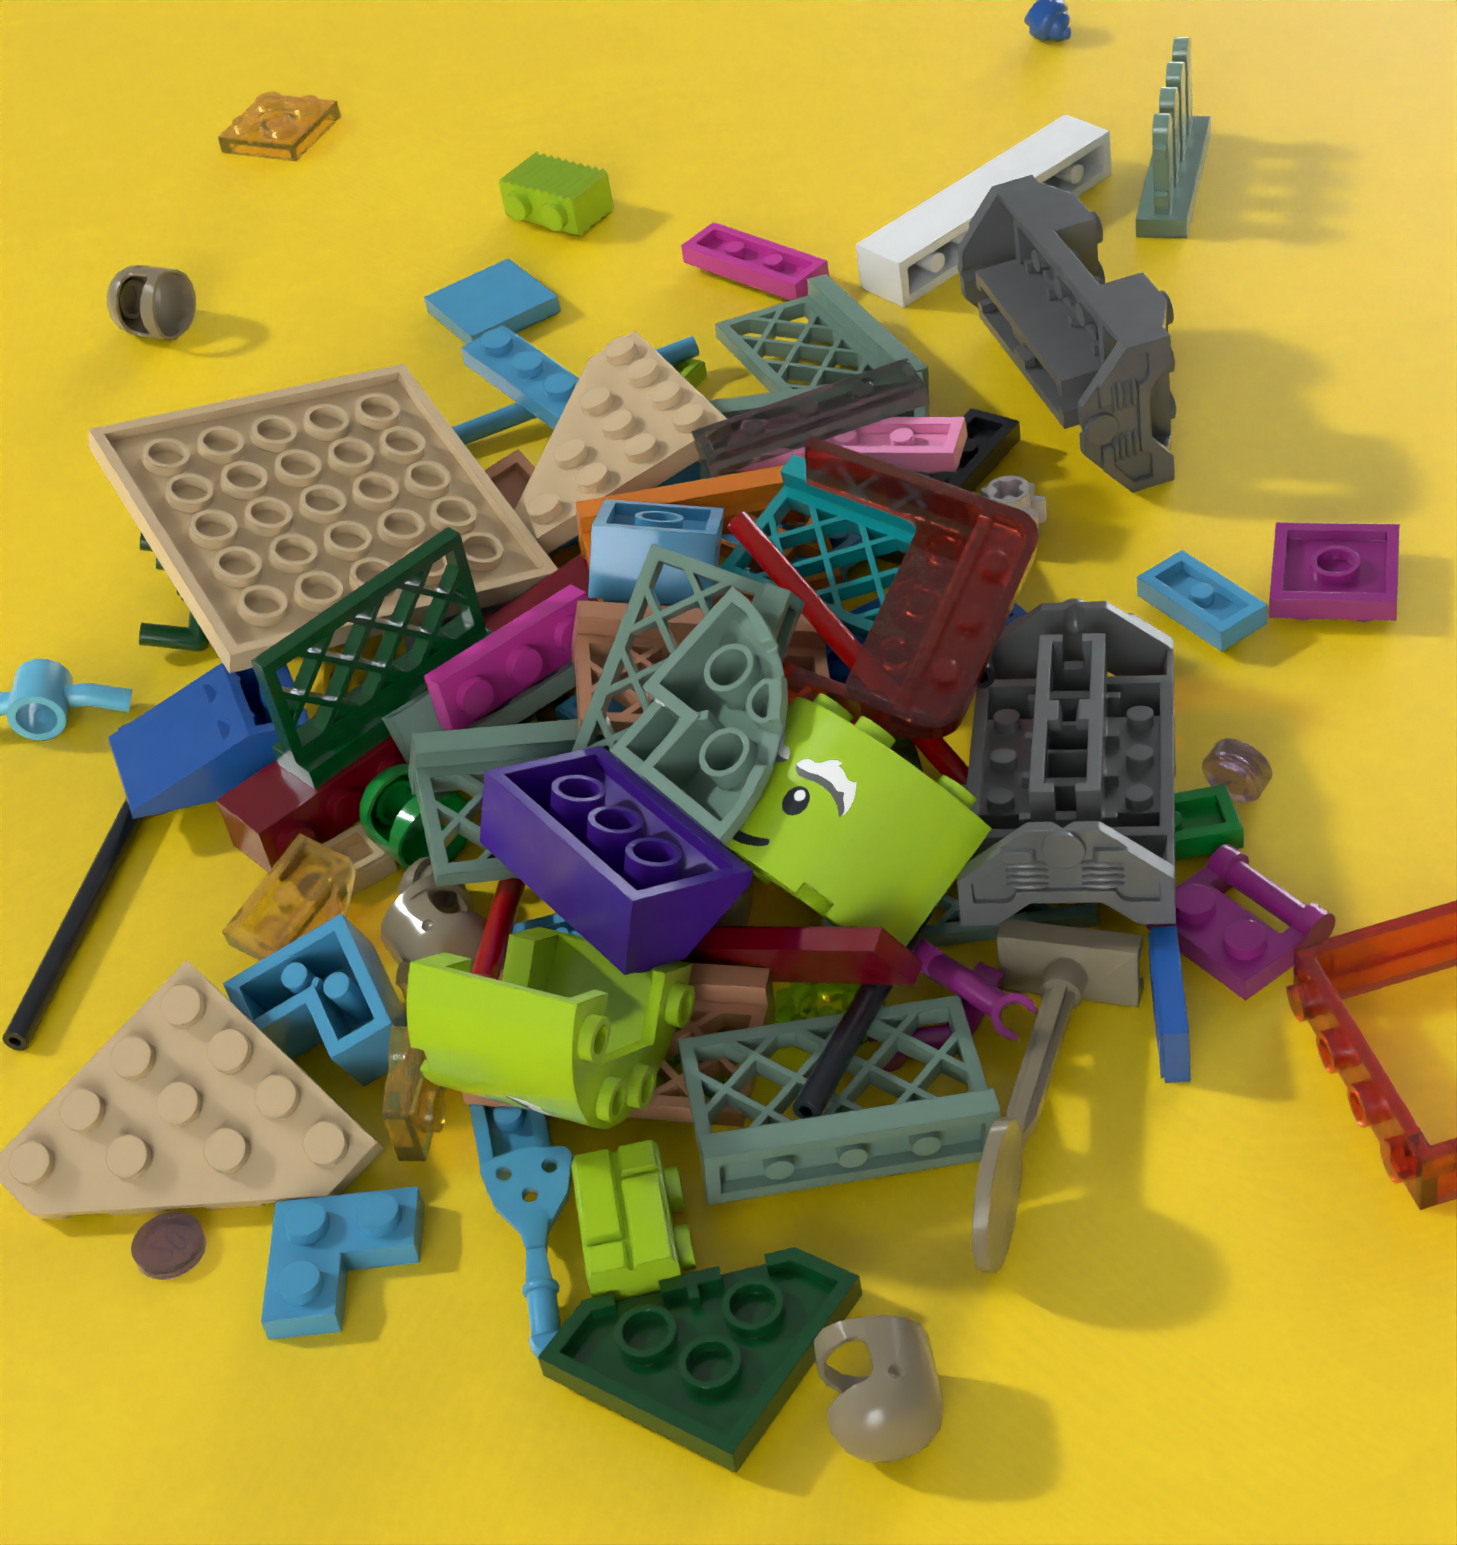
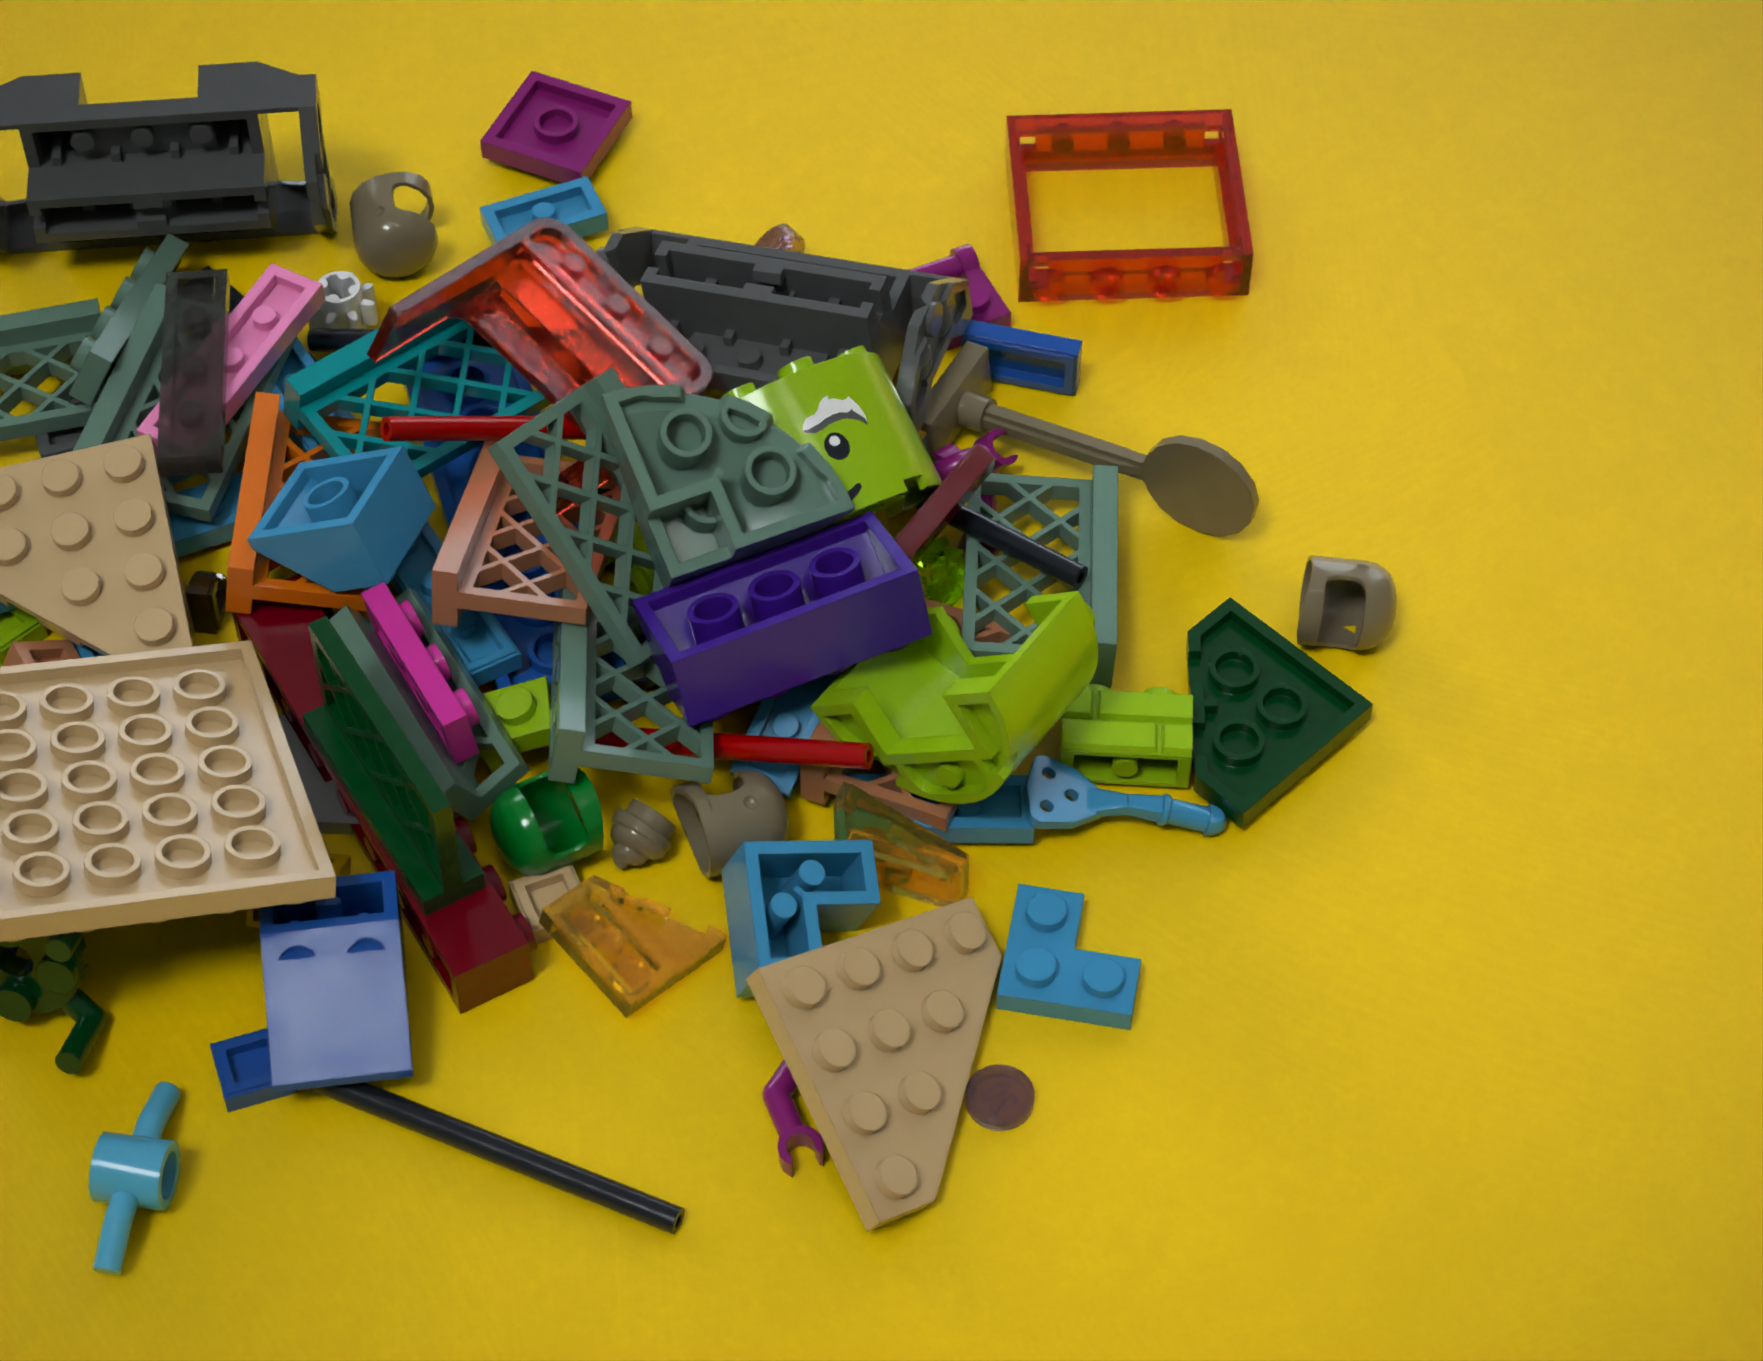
camera: 85 degrees left, 10 degrees up
(949, 390) = (98, 357): none -> sand green plate
(1112, 510) = (388, 238): none -> dark tan helmet

